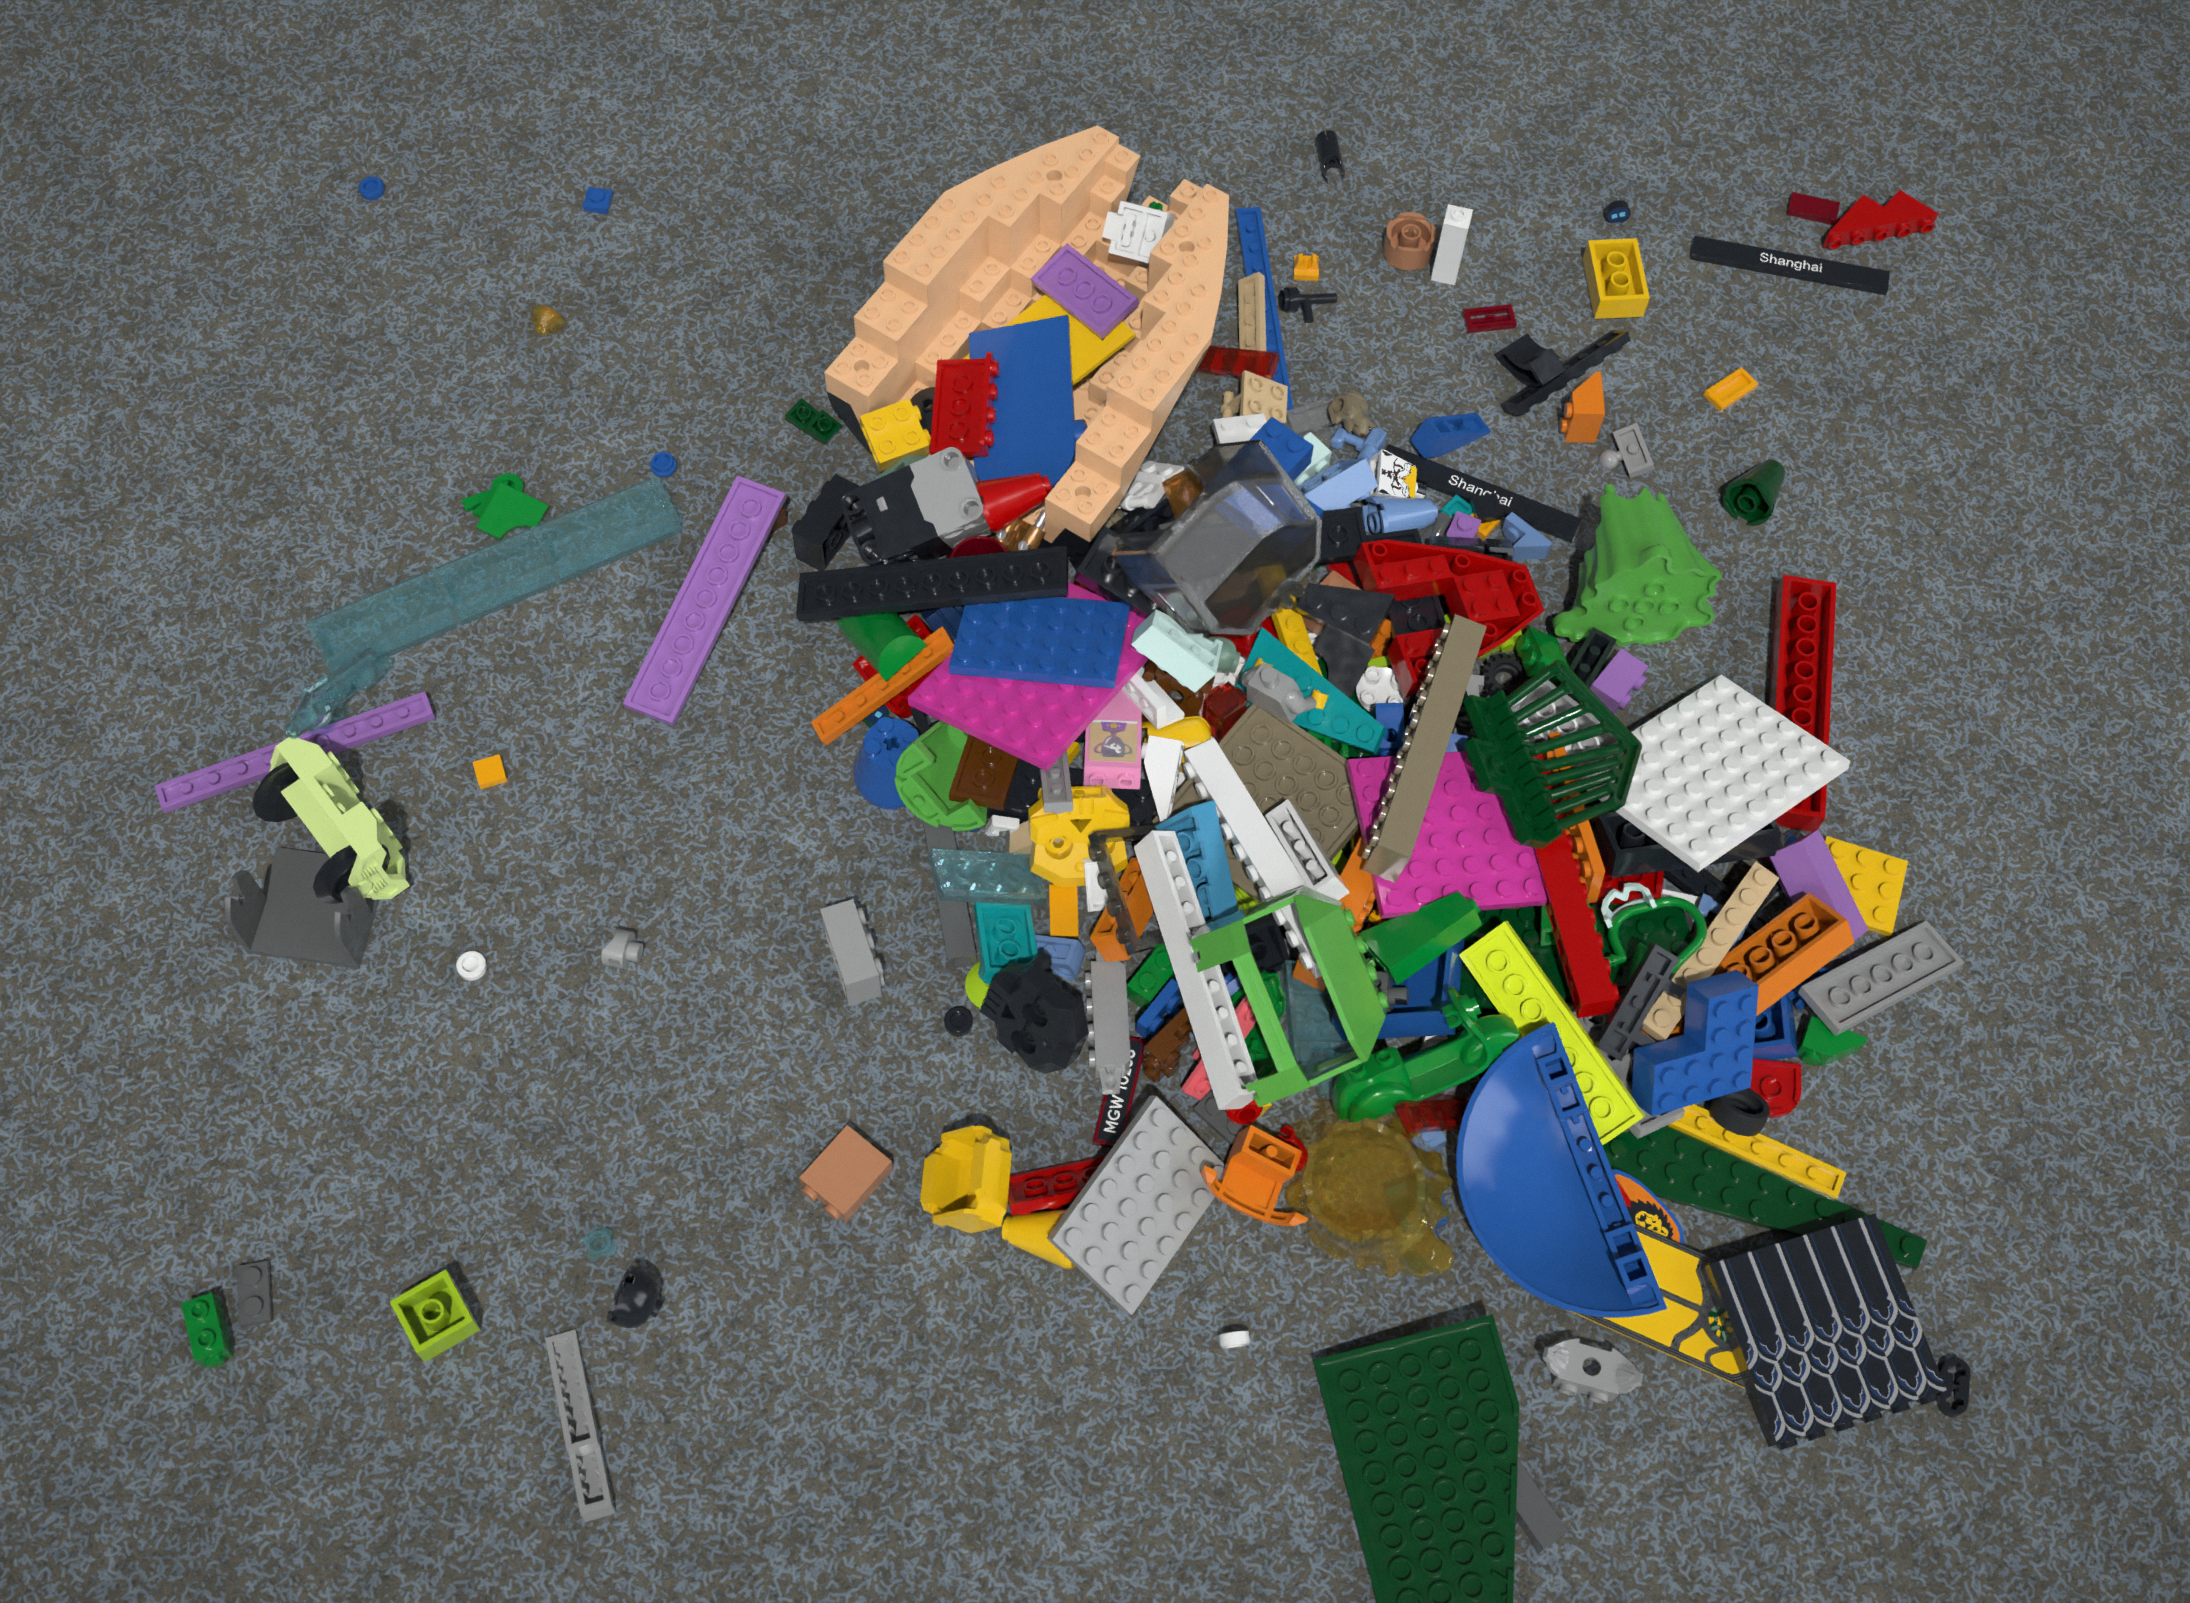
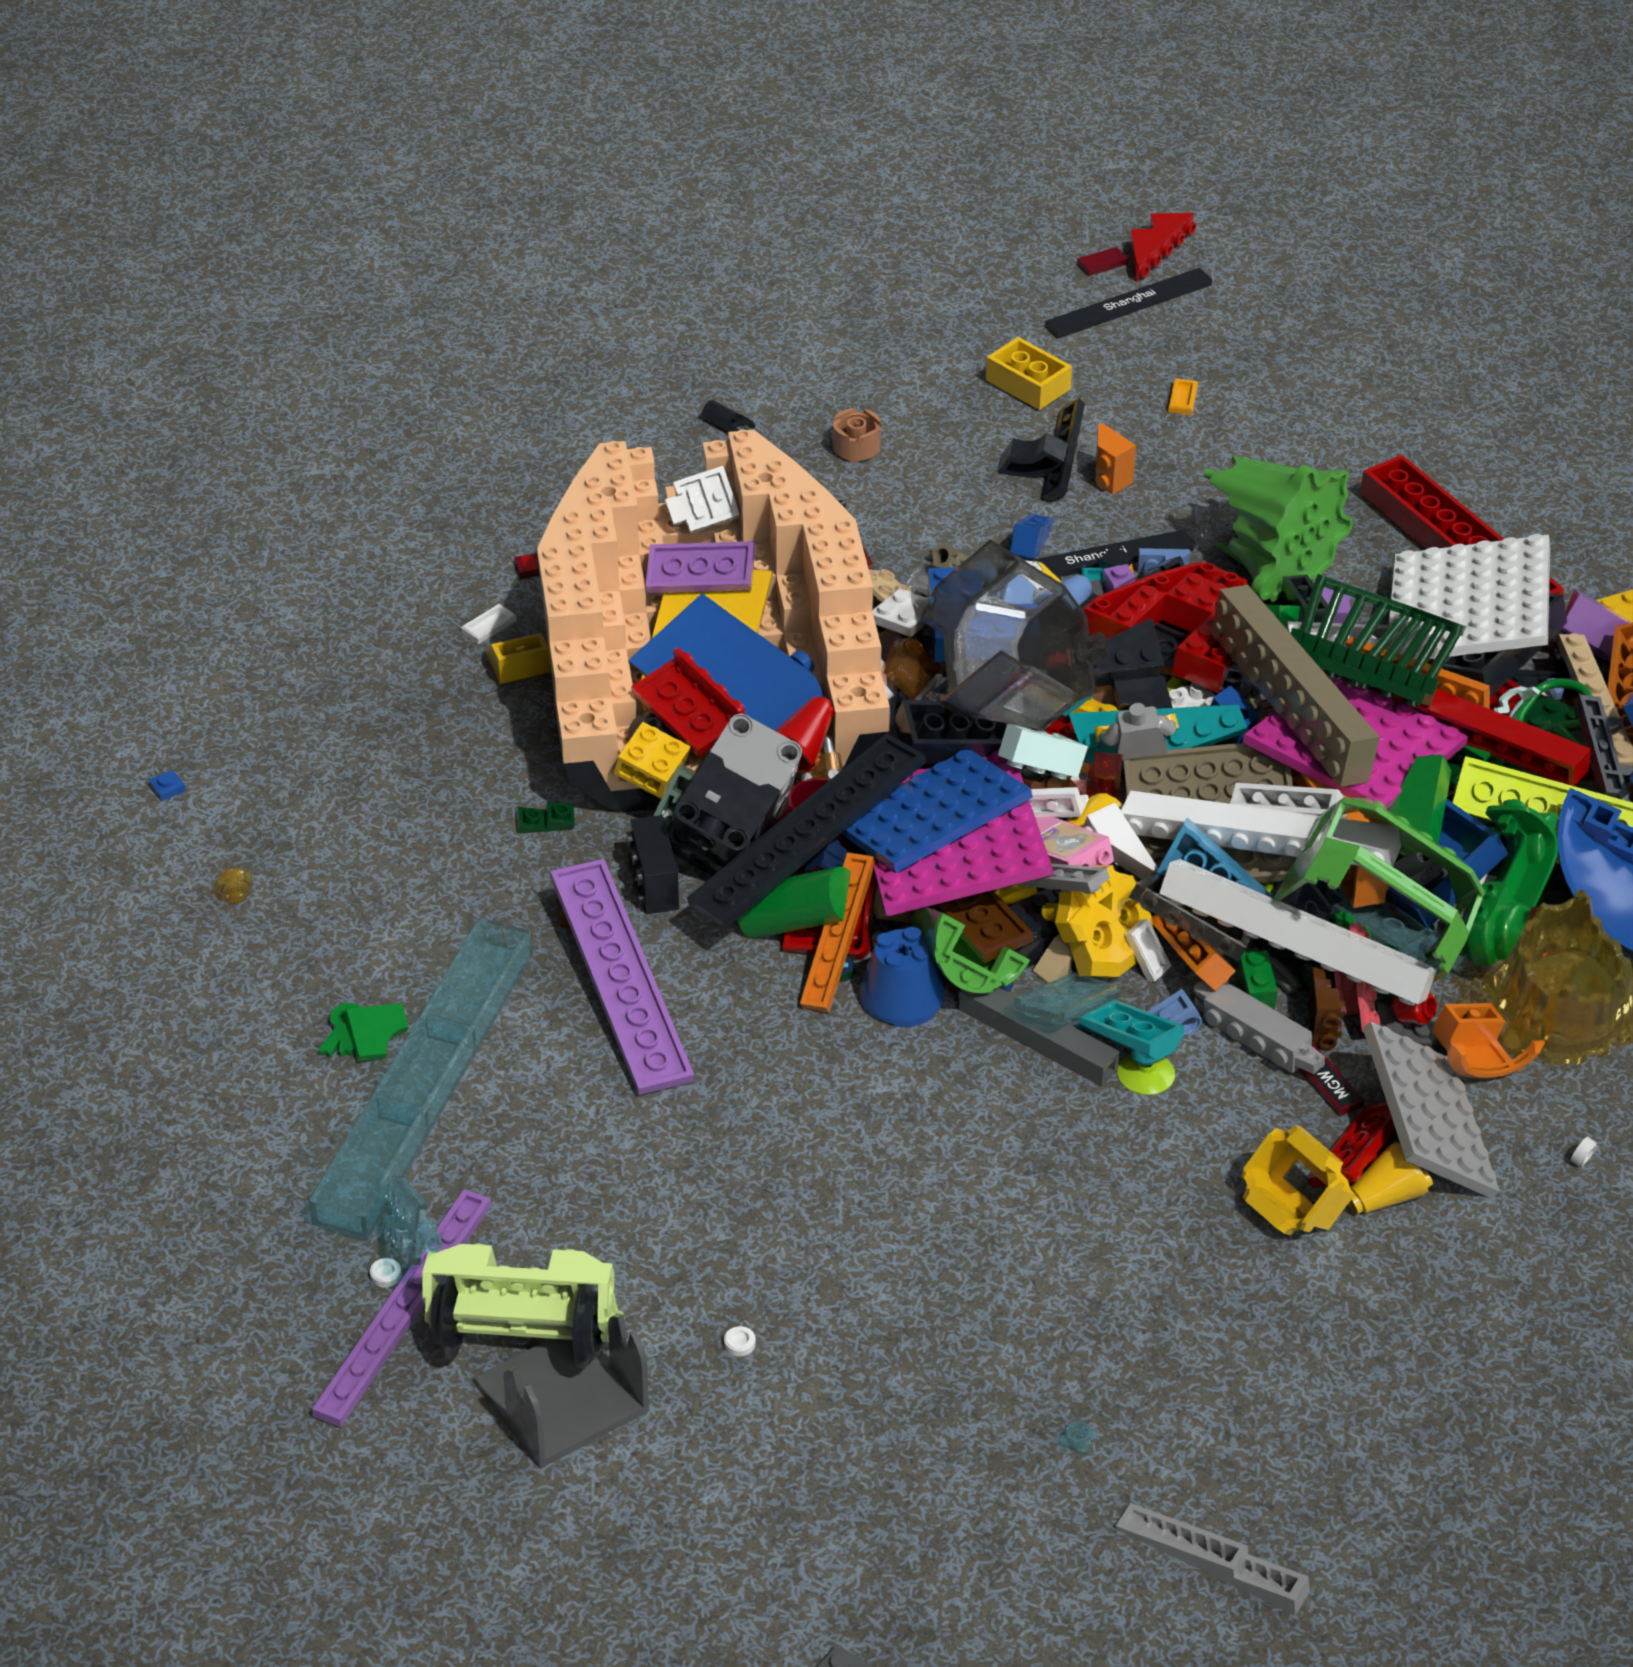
camera: 40 degrees left, 20 degrees down
(434, 1316) = (1021, 1567): lime brick -> none
(490, 771) = (584, 1208): light orange tile -> none
(622, 950) = (852, 1241): light grey piece -> none
(635, 1299) = (1149, 1435): black cylinder -> none
(663, 464) = (459, 920): blue plate -> none
(845, 1174) = (1200, 1254): nougat brick -> none
(852, 951) = (1029, 1113): light grey brick -> none
(958, 1021) = (1152, 1110): black tile -> none
(1001, 823) = (1036, 962): white tile -> none
(1036, 1016) = (1244, 1048): black brick -> none
(1063, 912) = (1138, 991): light orange tile -> none
(1164, 1003) = (1288, 992): blue plate -> none
(1451, 244) = (898, 409): white slope -> none
(1489, 322) = (970, 454): dark red tile -> none
(1617, 212) = (976, 336): tile -> none
(1631, 450) = (1166, 468): light grey plate -> none
(1755, 493) = (1282, 441): dark green cone -> none

